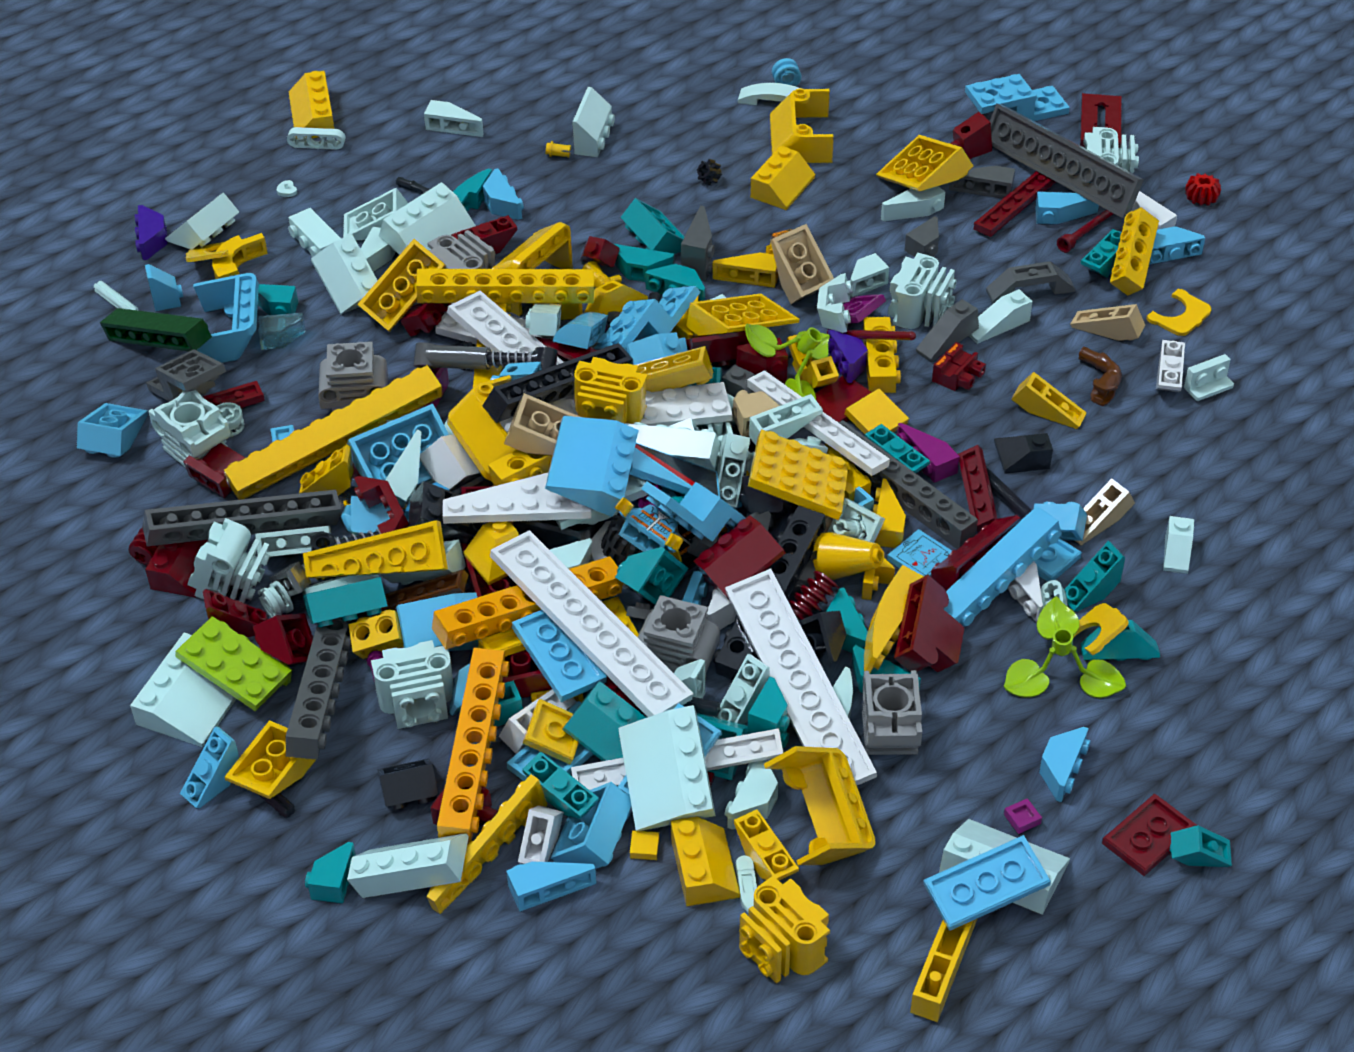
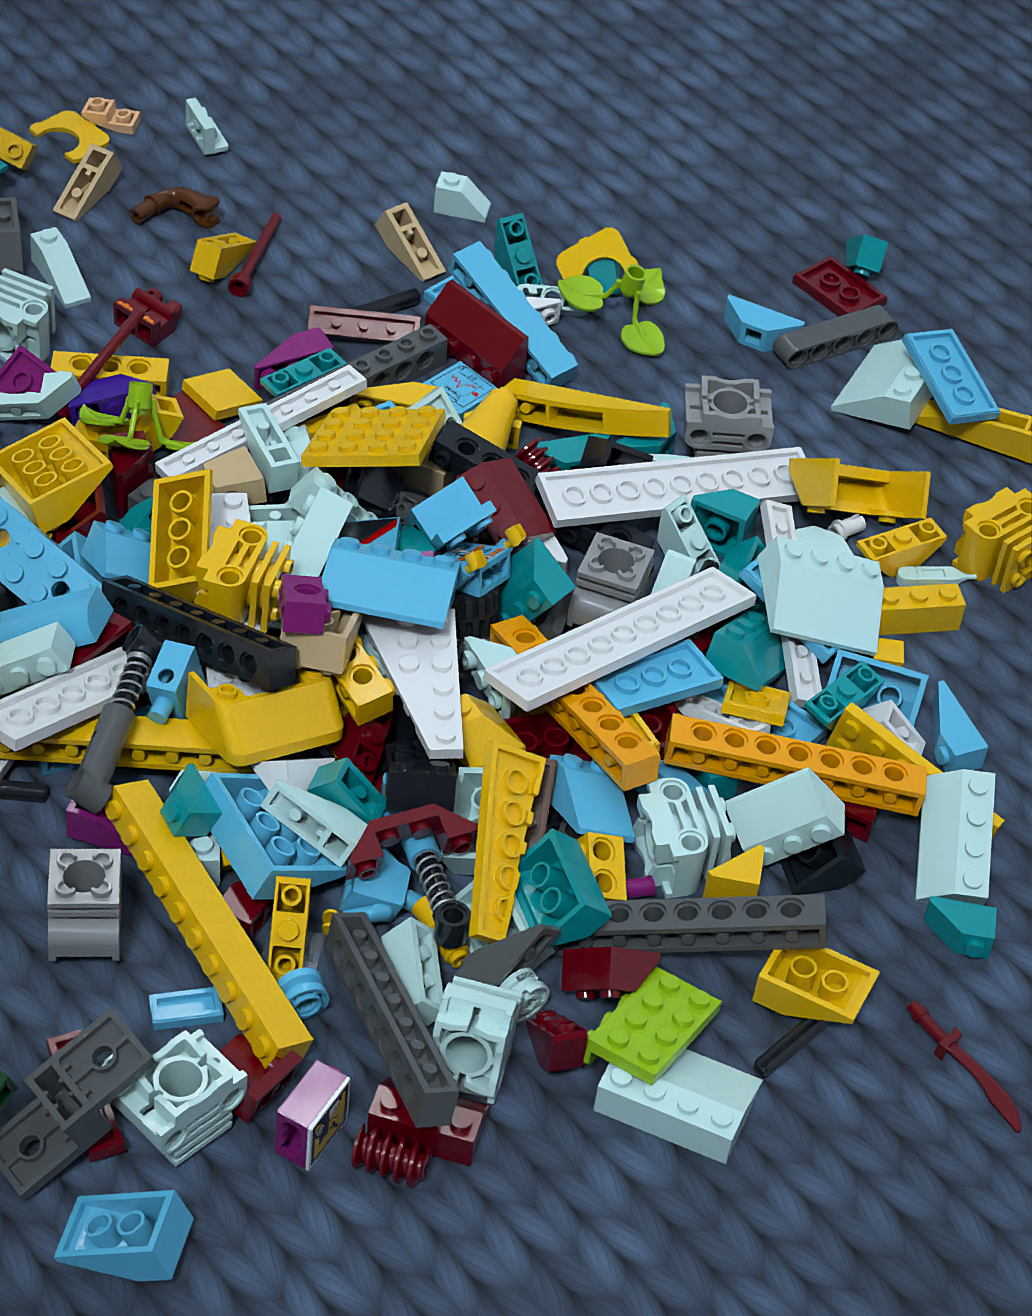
camera: 95 degrees left, 0 degrees up
(176, 488) = (312, 1115): none -> piece
(209, 772) = (823, 1049): medium azure slope -> none
(220, 858) = (949, 1043): none -> dark red sword
(282, 486) = (305, 991): none -> medium azure wheel
(363, 719) = (737, 876): none -> yellow slope
(414, 398) = (190, 806): none -> teal slope
(418, 741) = (787, 815): none -> light aqua slope
(433, 472) = (349, 788): none -> teal slope
(540, 398) = (303, 604): none -> magenta brick
(796, 819) = (848, 526): none -> white pin
(927, 631) = (600, 379): dark red brick -> none
(952, 327) = (81, 308): dark grey slope -> none
(1019, 418) = (241, 282): none -> dark red piece
(1022, 816) = (829, 365): magenta plate -> none
(1024, 452) = (296, 283): black slope -> none
(1067, 823) = (835, 337): none -> dark grey beam
(1070, 516) = (425, 269): medium azure slope -> none
(1170, 366) = (188, 152): white slope -> none
(1211, 329) = (103, 113): none -> light nougat slope

